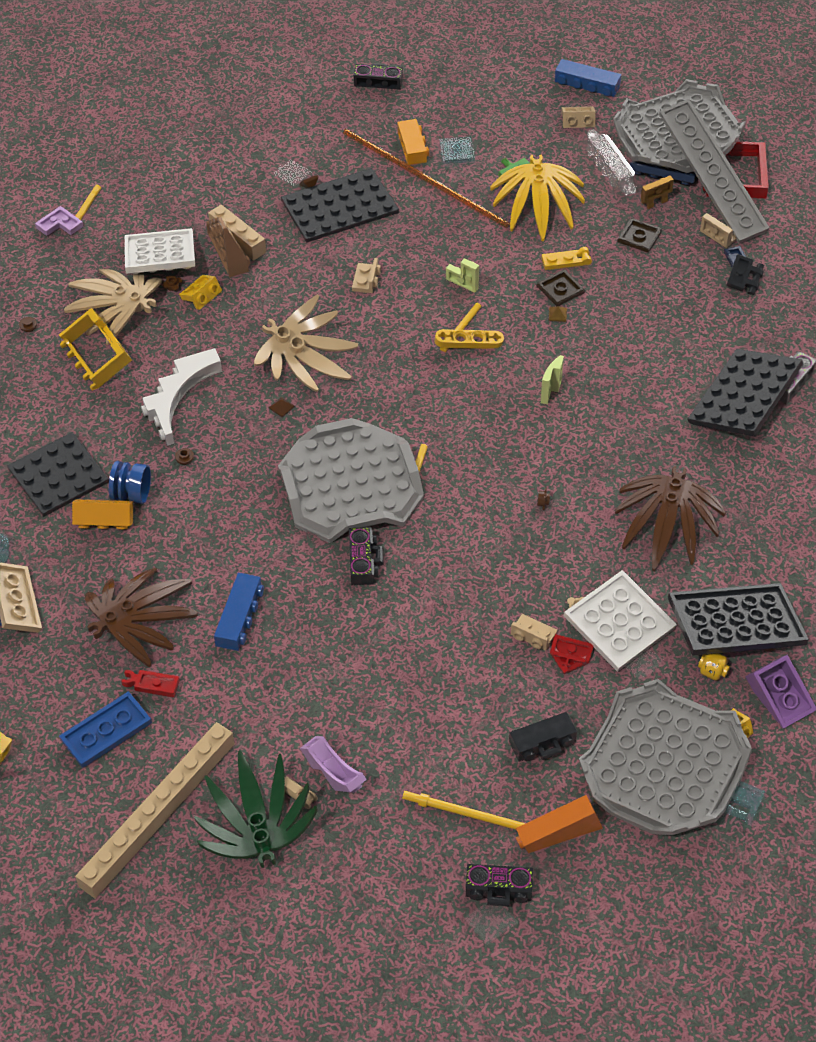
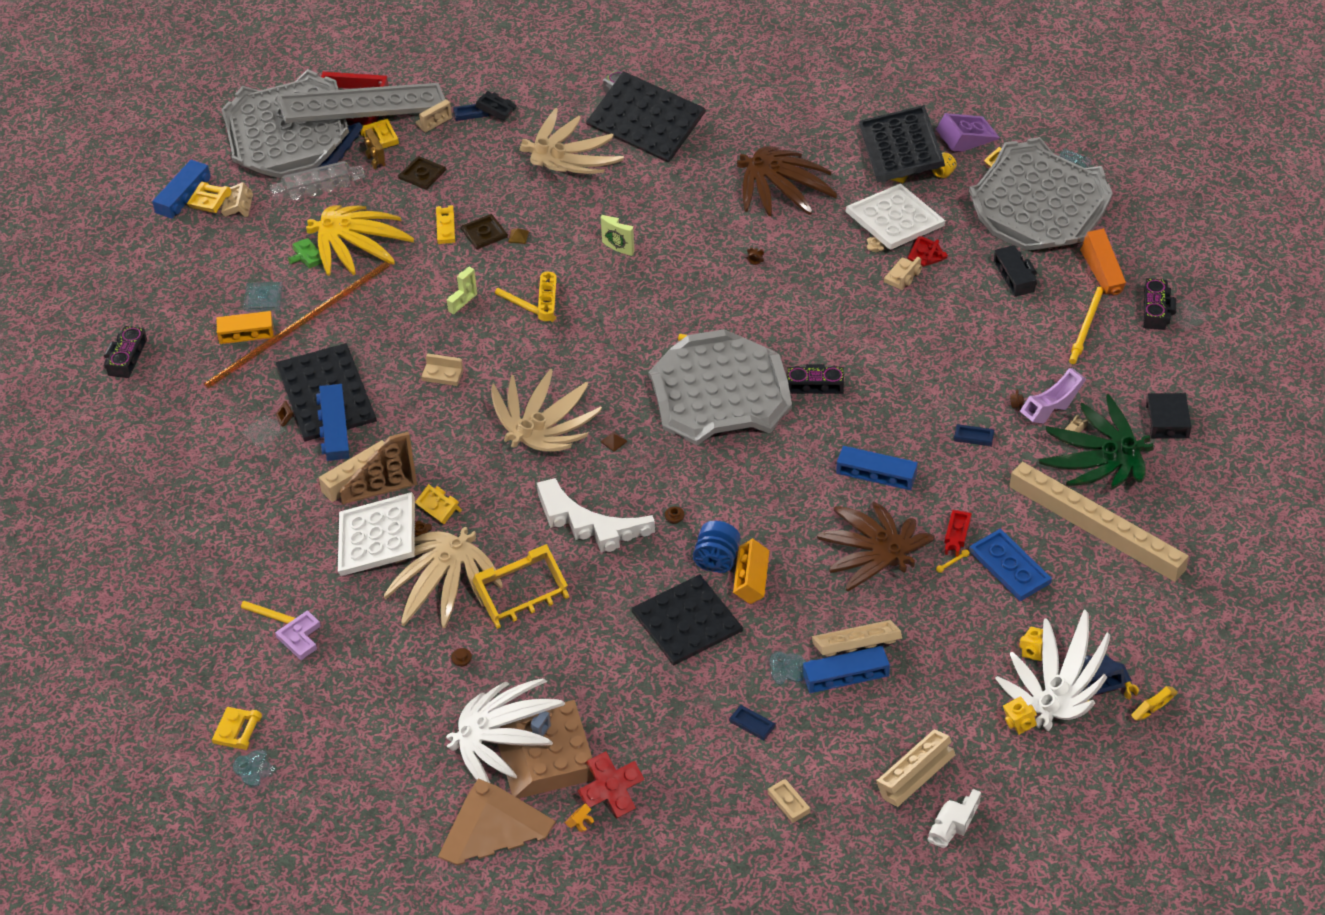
camera: 85 degrees left, 5 degrees down
(108, 671) = (940, 569): none -> yellow hinge
(288, 207) = (334, 422): none -> blue brick
(290, 700) = (974, 435): none -> dark blue tile
(316, 885) = (1168, 415): none -> black panel
(338, 737) = (1017, 400): none -> reddish brown plate
(573, 95) = (207, 201): none -> yellow plate
(679, 323) = (559, 156): none -> tan plant
(688, 198) = (383, 131): none -> yellow plate

